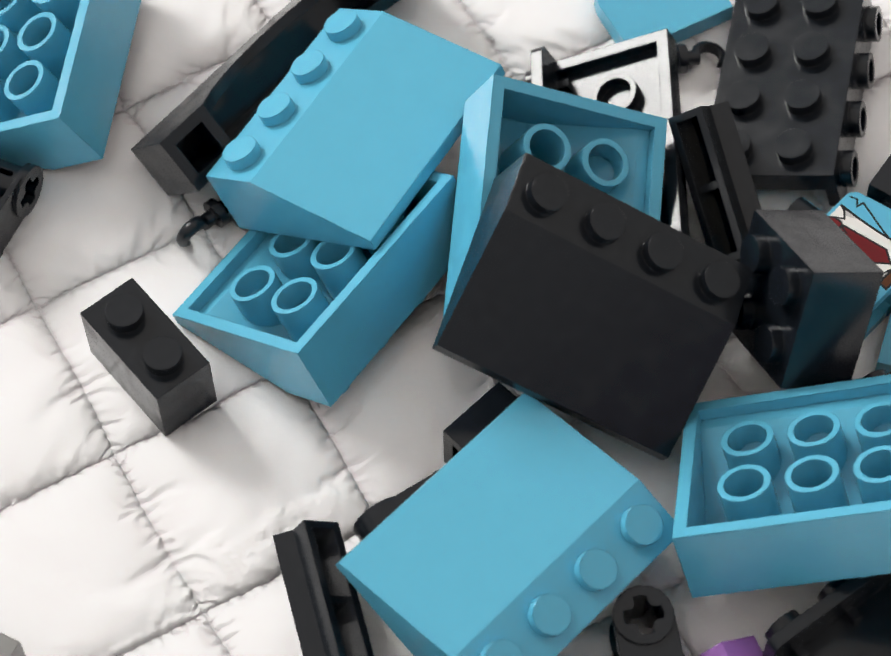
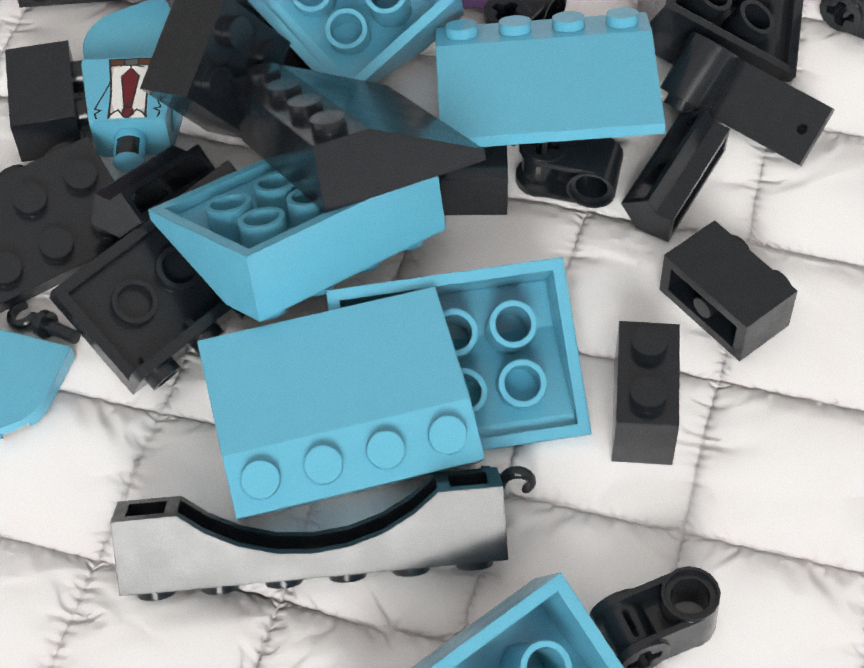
camera: 135 degrees left, 5 degrees down
(165, 513) = (727, 290): none -> black brick

